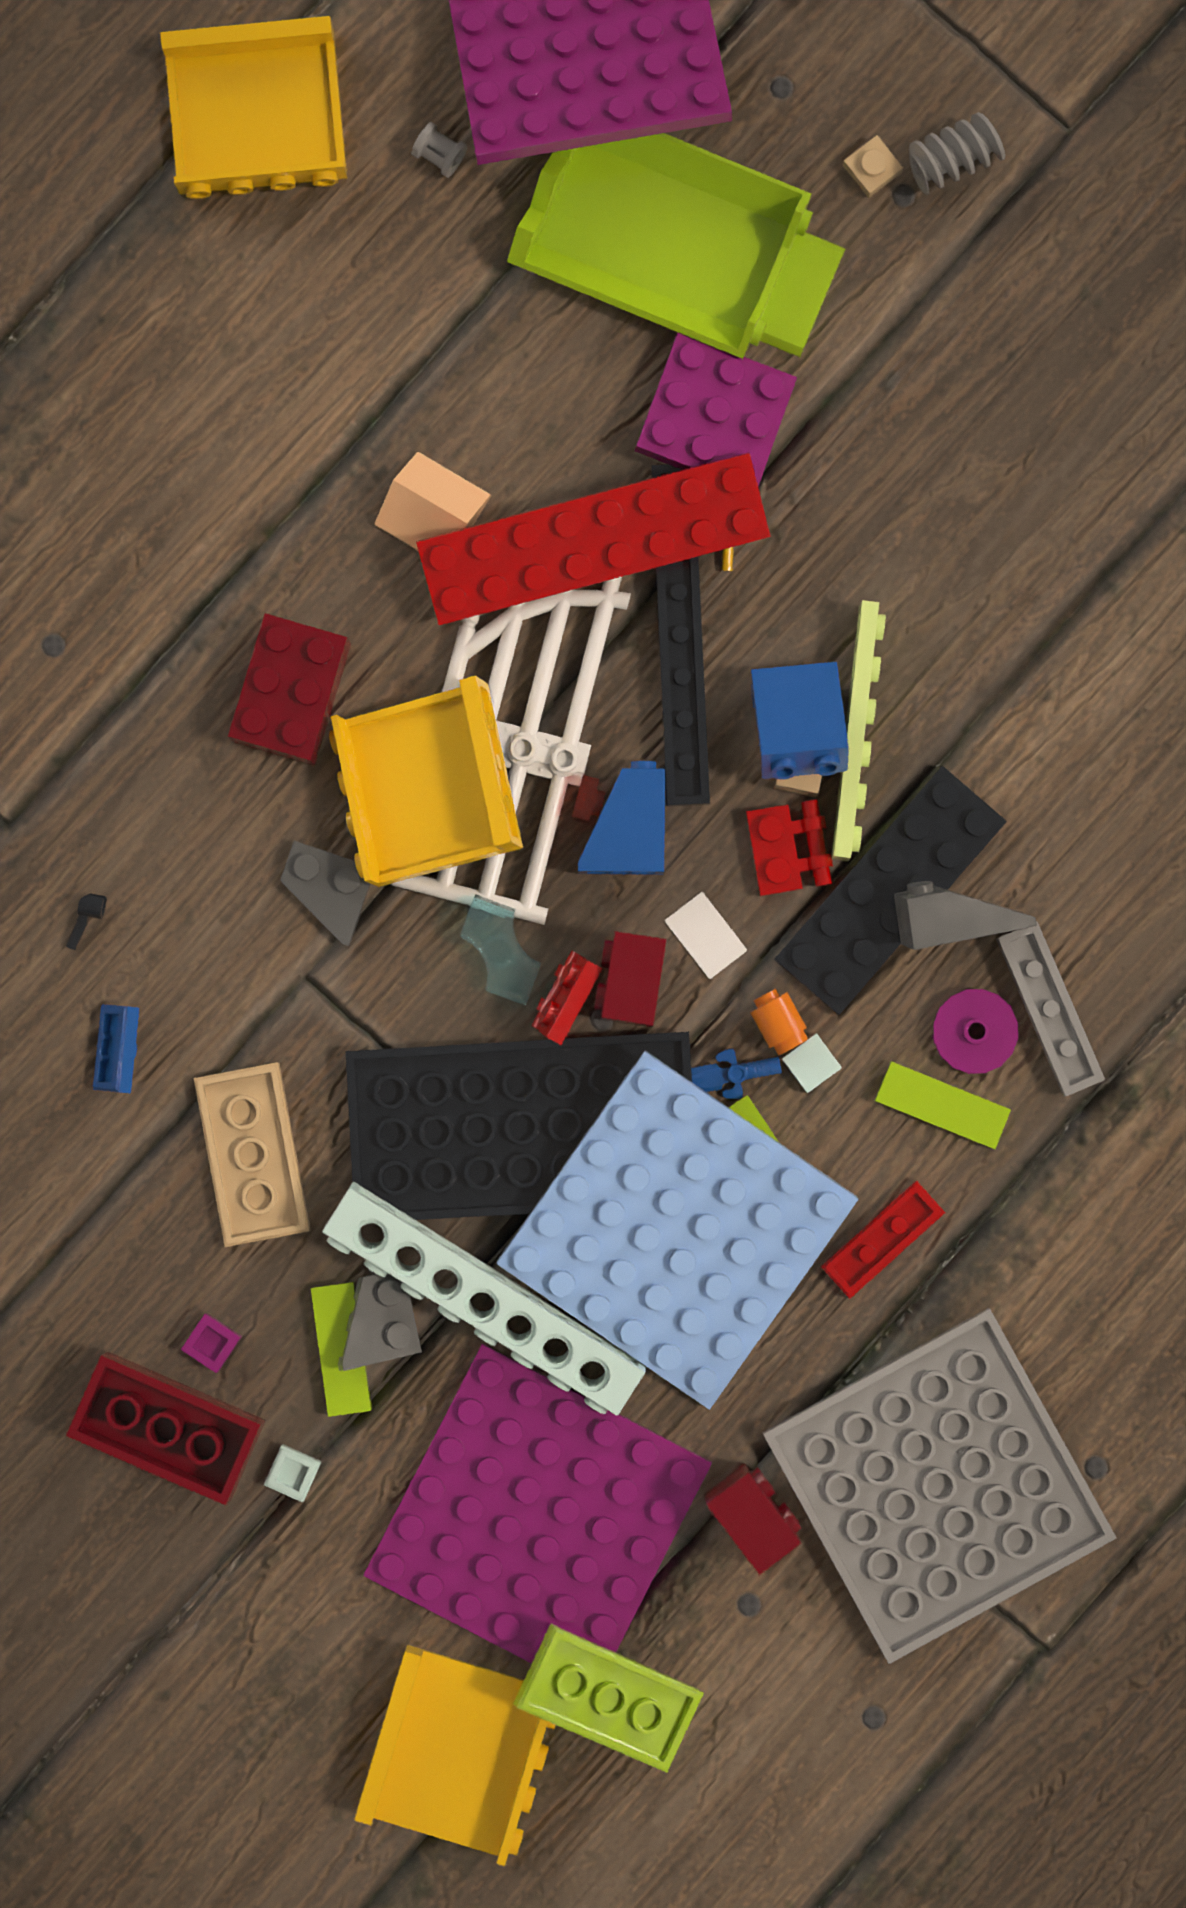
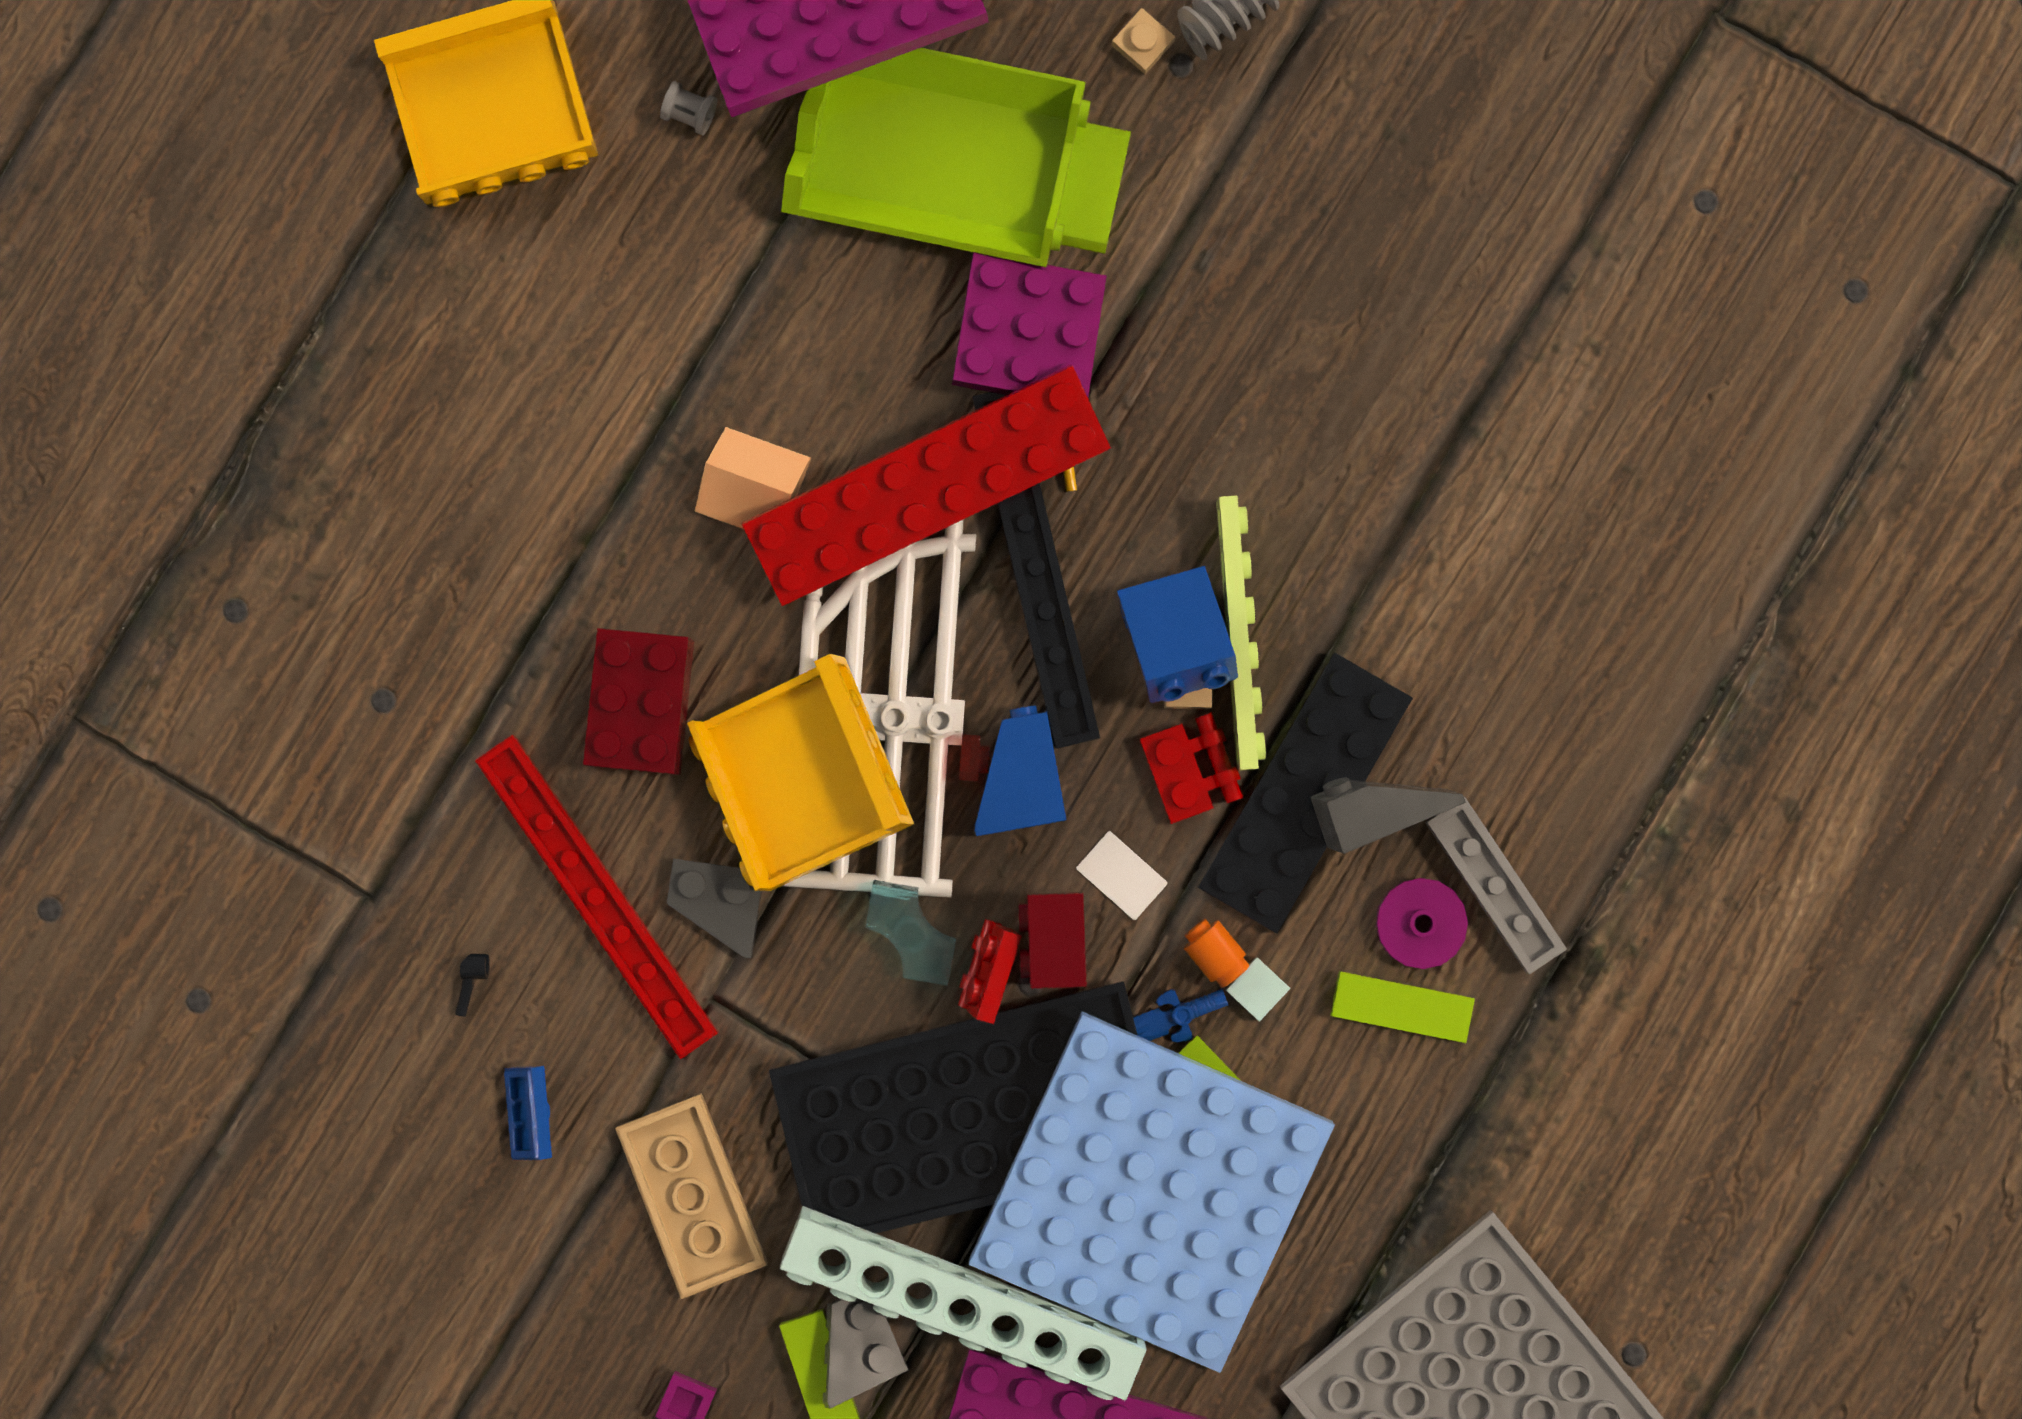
camera: 15 degrees left, 0 degrees up
(217, 862) = (597, 896): none -> red tile
(882, 1239) = (1366, 1159): red tile -> none

